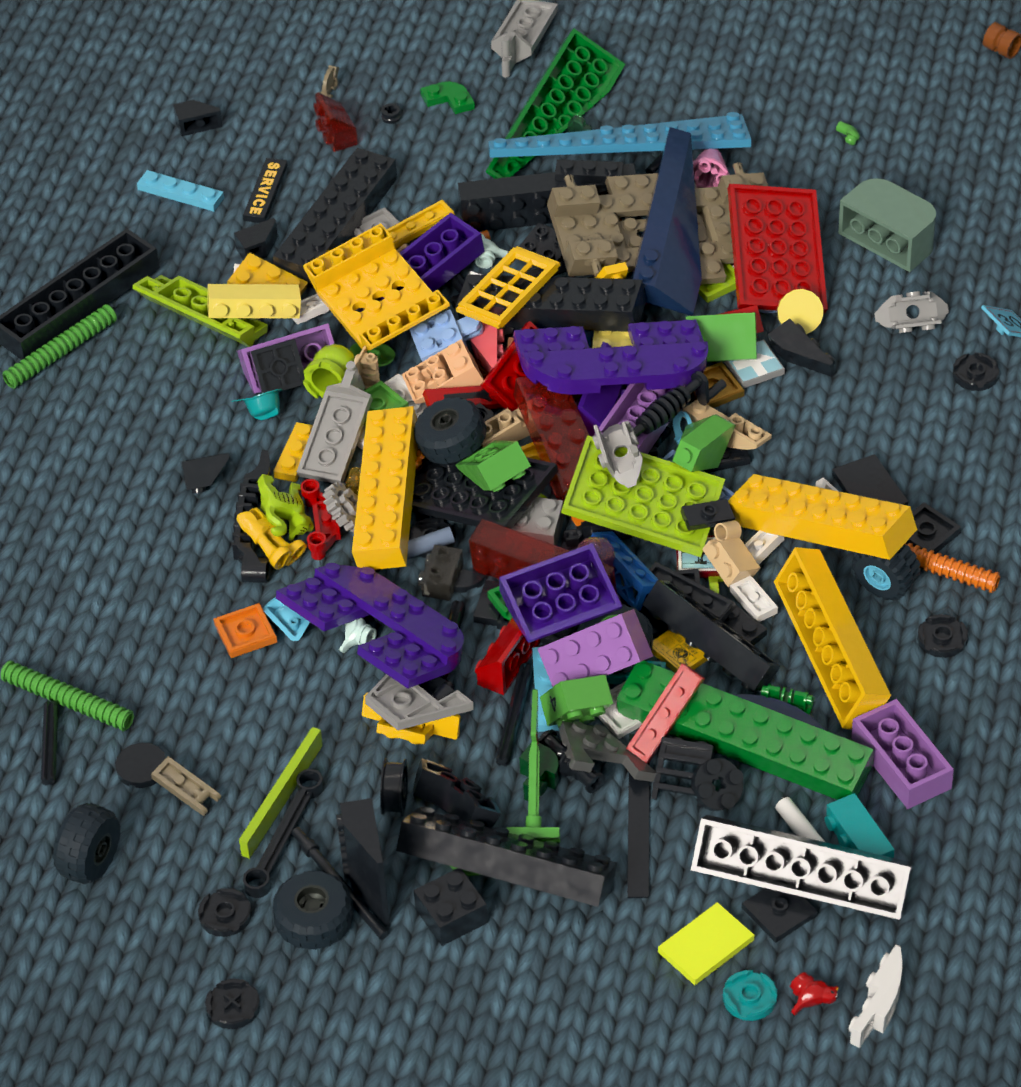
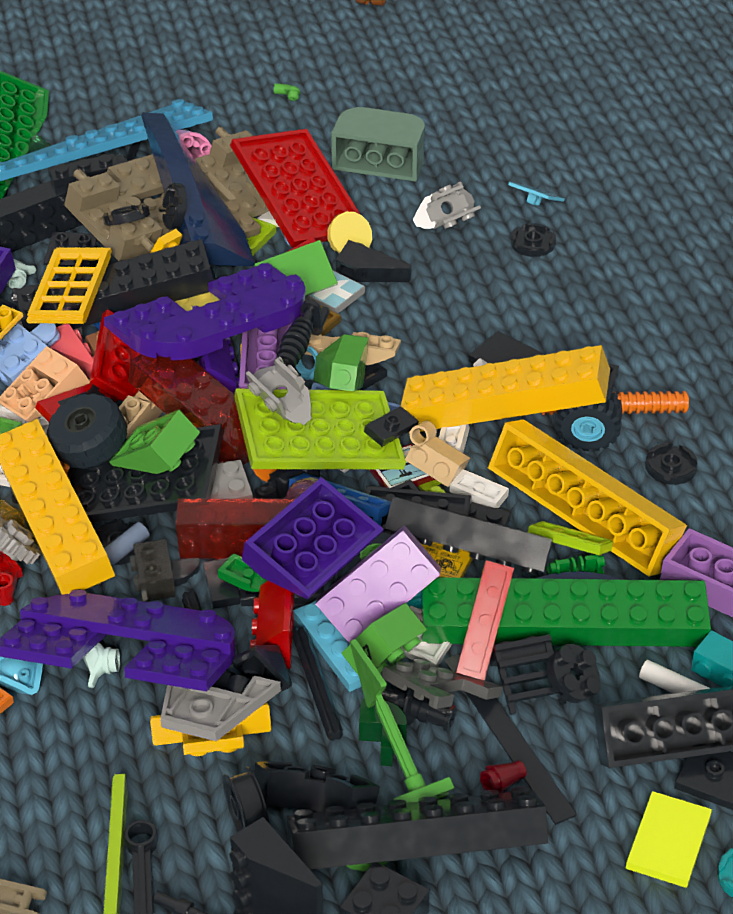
camera: 30 degrees left, 5 degrees down
(476, 684) = (264, 662): none -> black slope
(590, 233) = (126, 215): none -> black tile
(608, 844) = (502, 776): none -> dark red cone
(639, 235) = (175, 205): none -> black tile
(798, 670) = (572, 538): none -> lime tile

